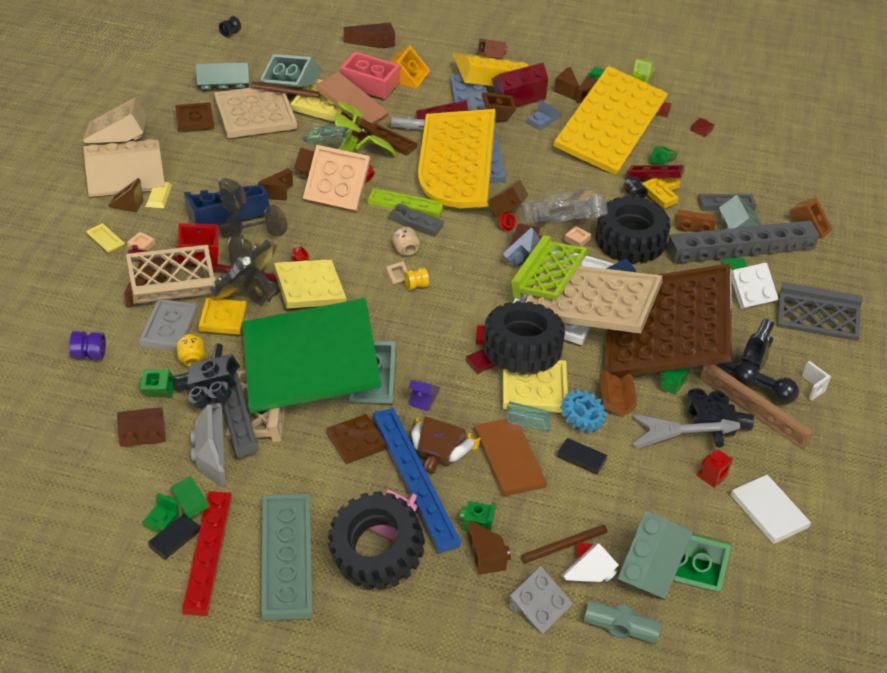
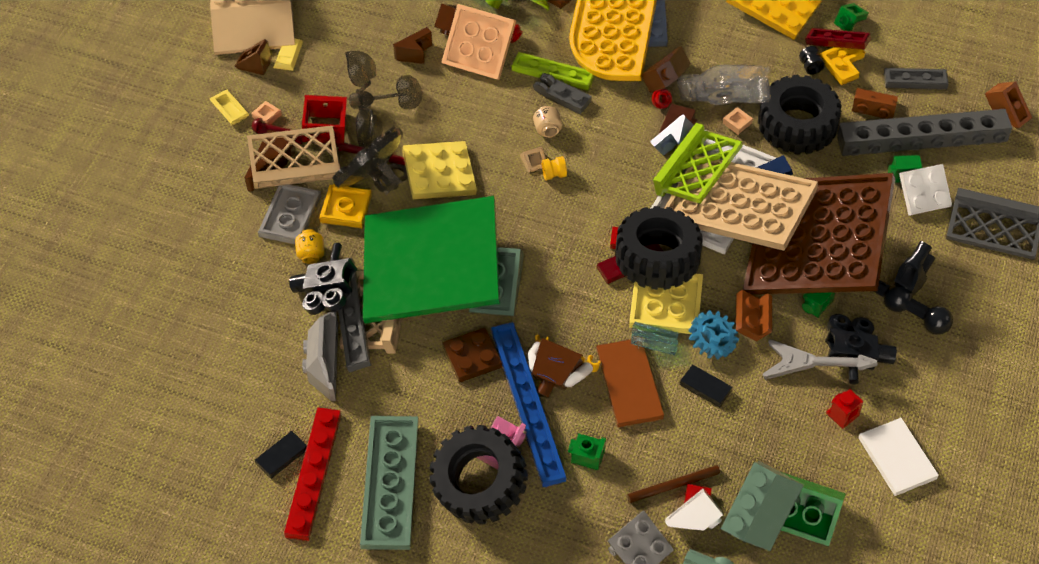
camera: 10 degrees right, 10 degrees up
(87, 345) = (209, 237): dark purple wheel -> none
(141, 427) = (254, 332): copper brick -> none
(157, 383) = (268, 278): green brick -> none
(162, 514) = (270, 430): green bracket -> none
(189, 497) = (298, 413): green tile -> none
(209, 209) = (334, 76): dark blue wedge -> none
(300, 254) = (432, 134): red plate -> none
(422, 394) = (546, 306): dark purple slope -> none
(487, 549) = (593, 487): reddish brown slope -> none
(738, 214) = (926, 98): sand green slope -> none
(757, 405) = (905, 337): medium nougat tile -> none
(817, 377) = (978, 305): white bracket -> none

